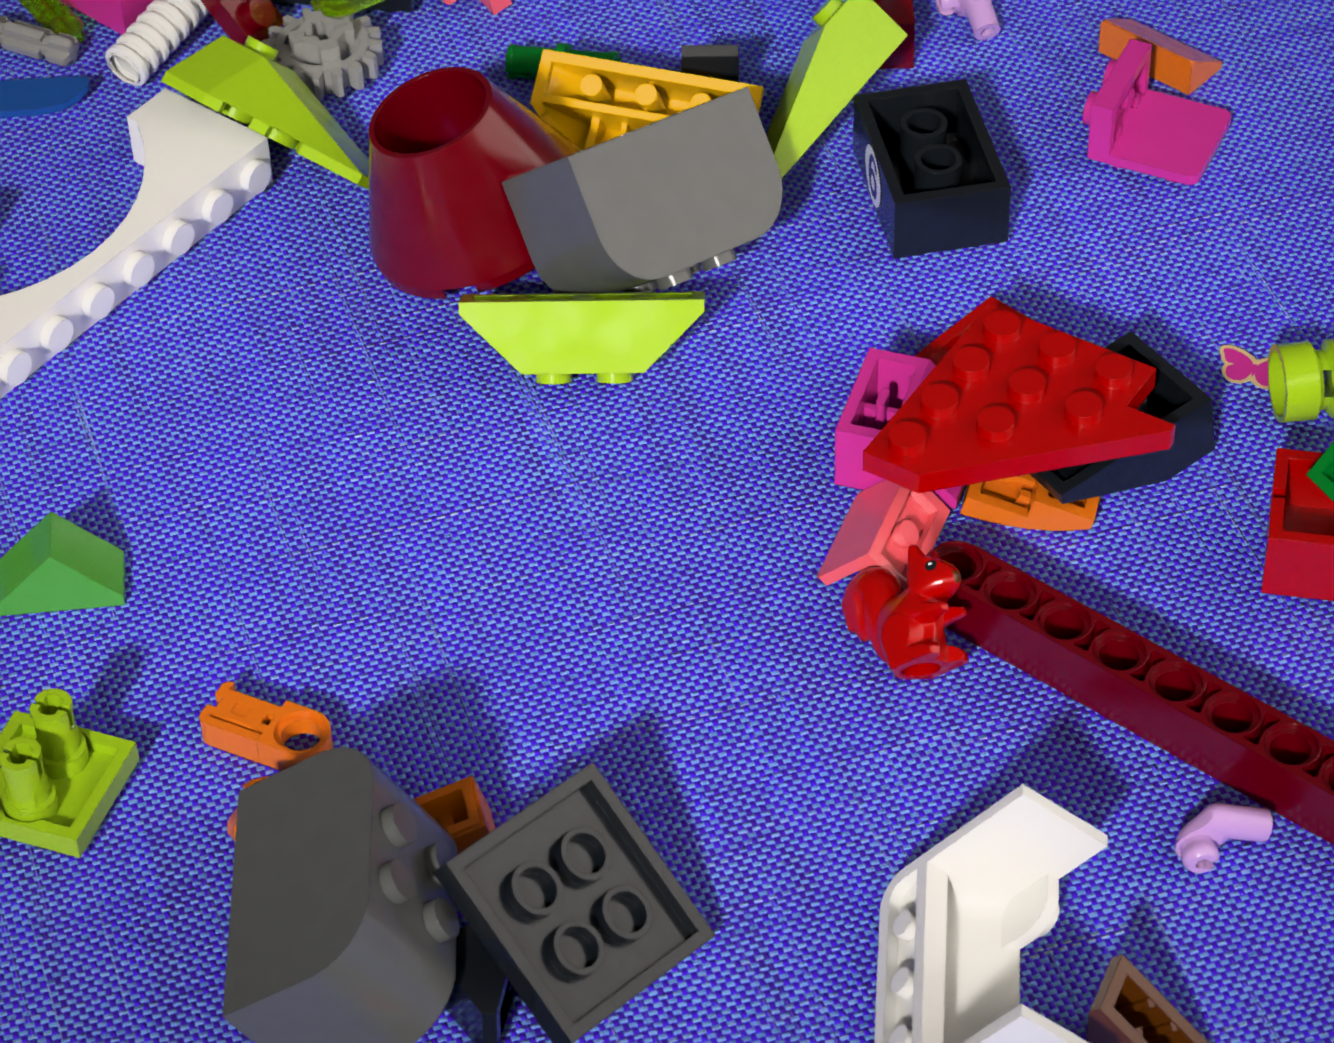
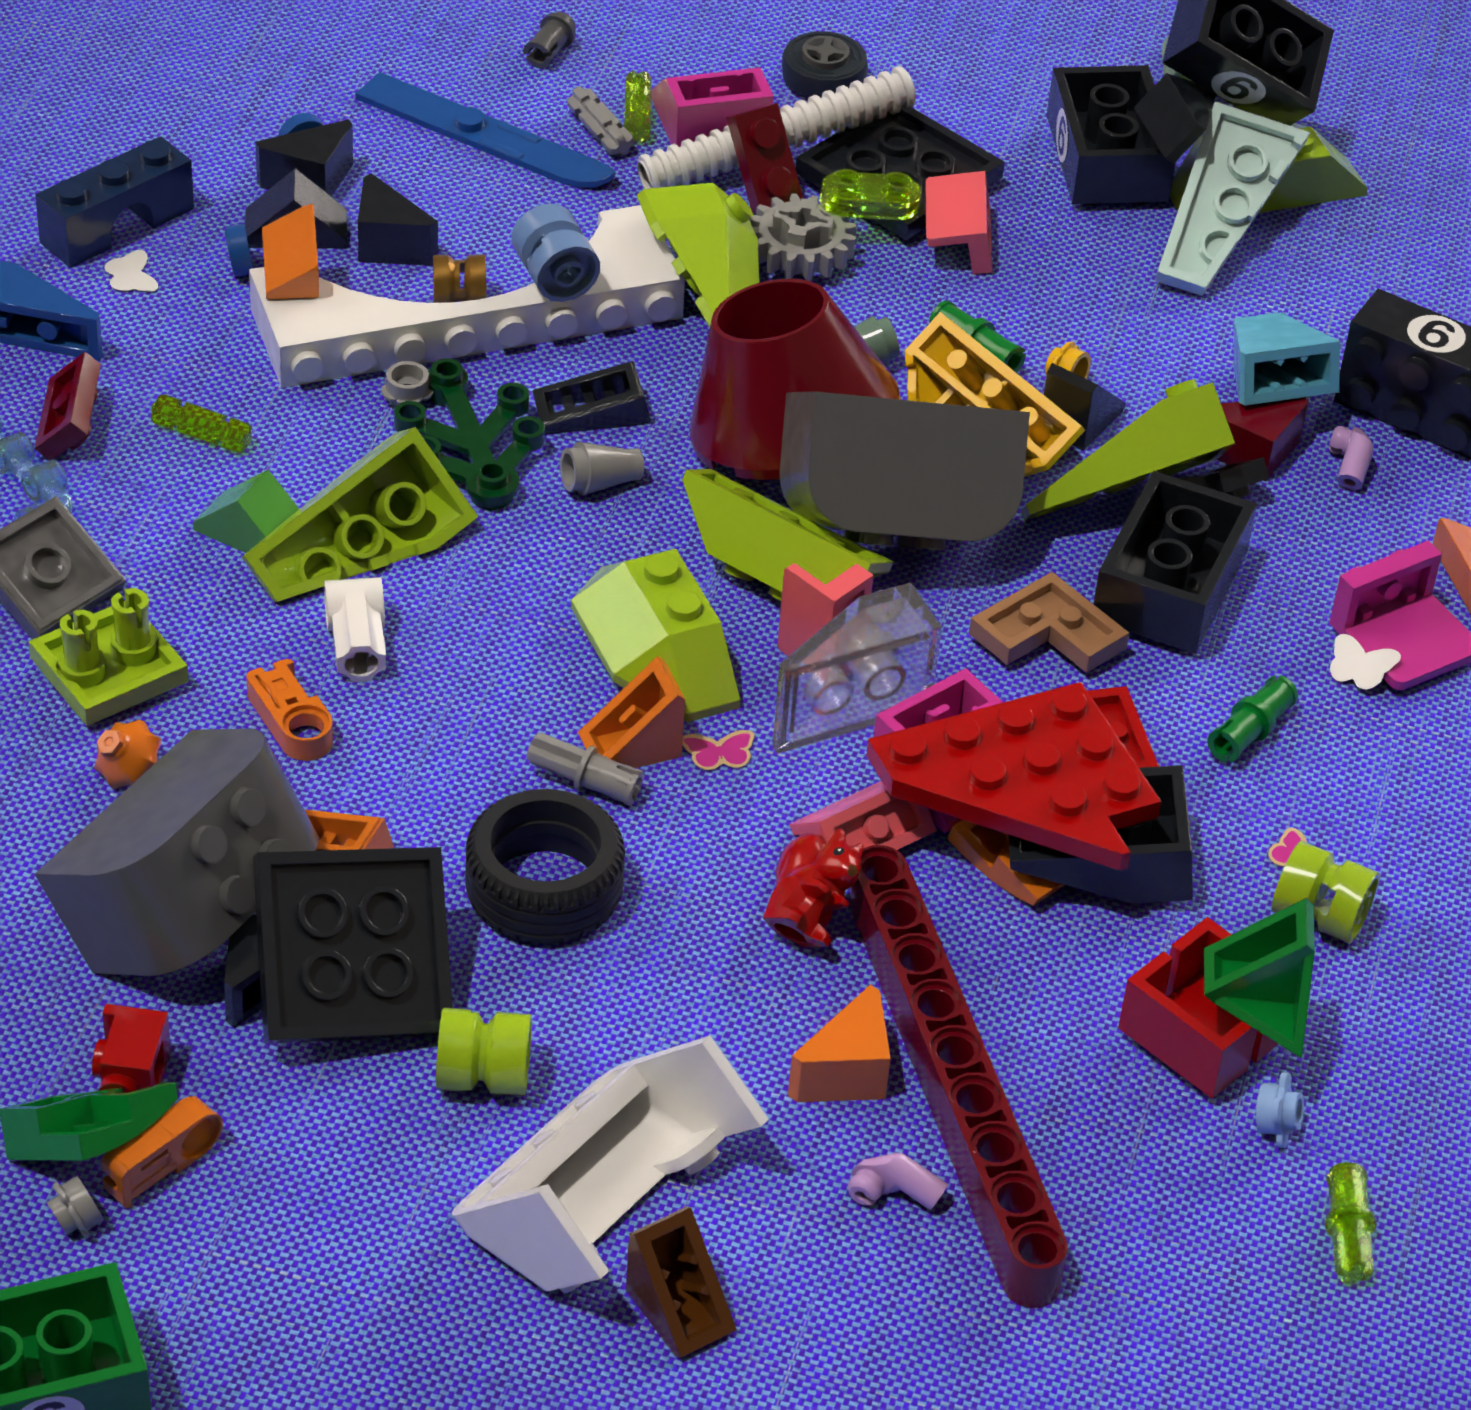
camera: 30 degrees right, 0 degrees up
(41, 247) = (447, 278): none -> pearl gold wheel
(82, 369) = (406, 383): none -> light grey plate
(141, 168) = (555, 252): none -> medium blue wheel
(155, 860) = (126, 753): none -> orange piece
(168, 510) = (370, 516): none -> lime wedge
(247, 418) = (486, 480): none -> dark green plant
(249, 606) = (357, 617): none -> white piece
(274, 272) = (610, 397): none -> black slope
(338, 352) = (599, 467): none -> light grey cone
(543, 466) = (659, 610): none -> lime wedge
(597, 627) = (586, 768): none -> light grey axle
(610, 557) = (641, 721): none -> orange slope
(664, 49) = (1071, 359): none -> yellow plate
(669, 686) = (544, 909): none -> black tyre
(686, 554) = (729, 750): none -> dark pink sticker
(690, 376) = (811, 604): none -> coral panel
(776, 394) = (856, 668): none -> clear slope
(777, 932) = (483, 1052): none -> lime wheel
(867, 268) = (1053, 614): none -> medium nougat plate
(900, 70) = (1233, 478): none -> black plate
(1086, 742) = (846, 1056): none -> orange slope
(1112, 269) = (1252, 718): none -> green pin
(1141, 180) = (1362, 667): none -> white sticker

